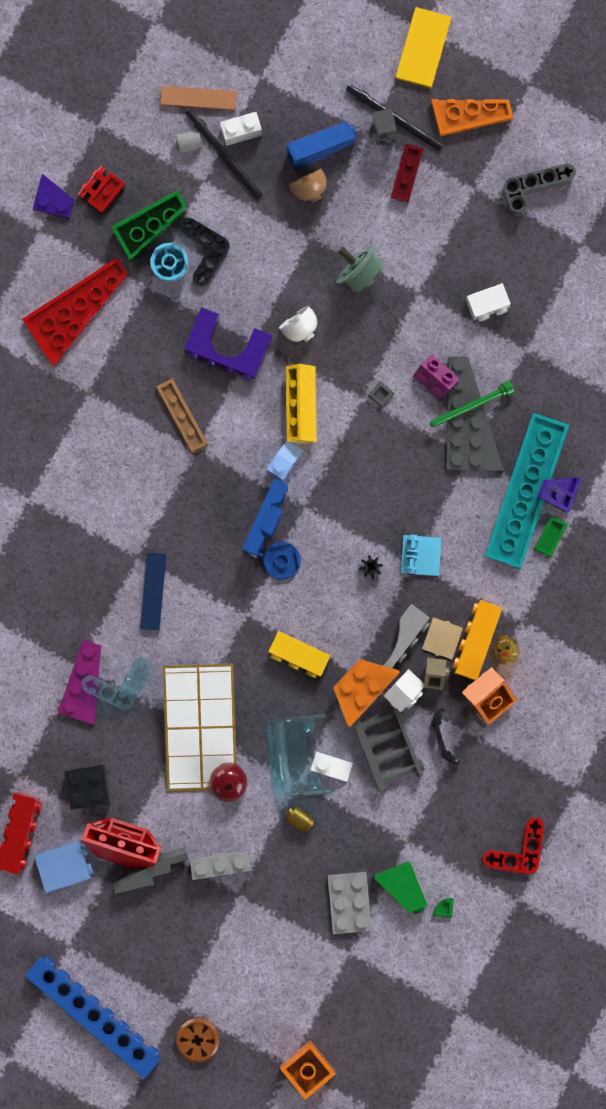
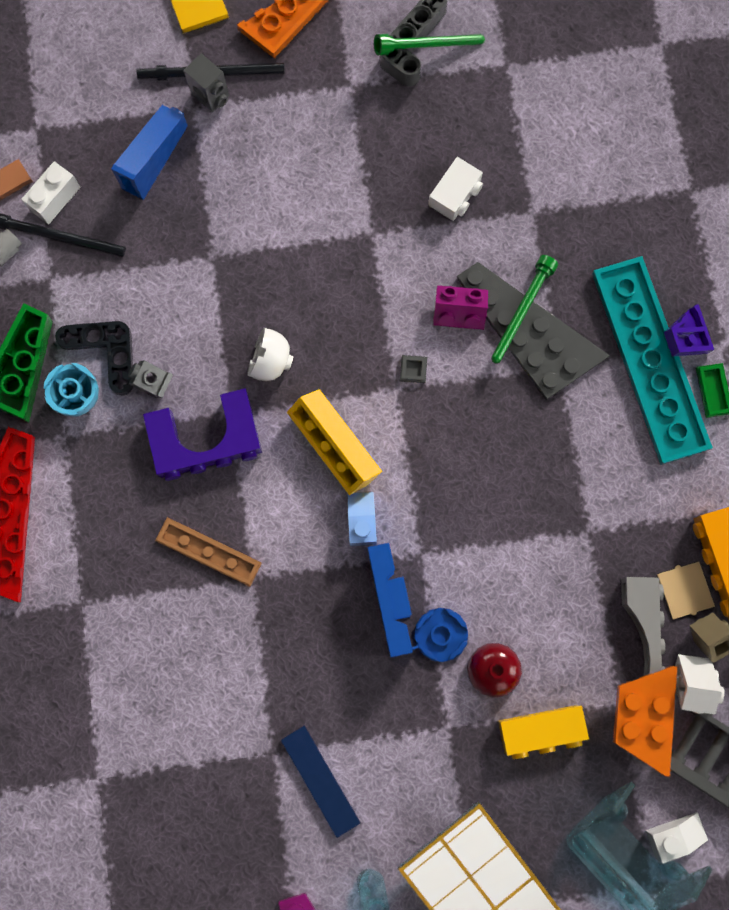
camera: 30 degrees left, 5 degrees down
(224, 294) = (138, 379): none -> dark grey brick
(297, 602) = (494, 670): none -> dark red cylinder
(309, 186) = (171, 200): medium nougat cylinder -> none
(361, 268) = (292, 247): sand green piece -> none
(372, 572) = (543, 573): black gear -> none
(407, 173) = (267, 117): dark red plate -> none
(421, 555) = (591, 514): medium azure hinge -> none
(509, 181) = (385, 44): none -> green piece

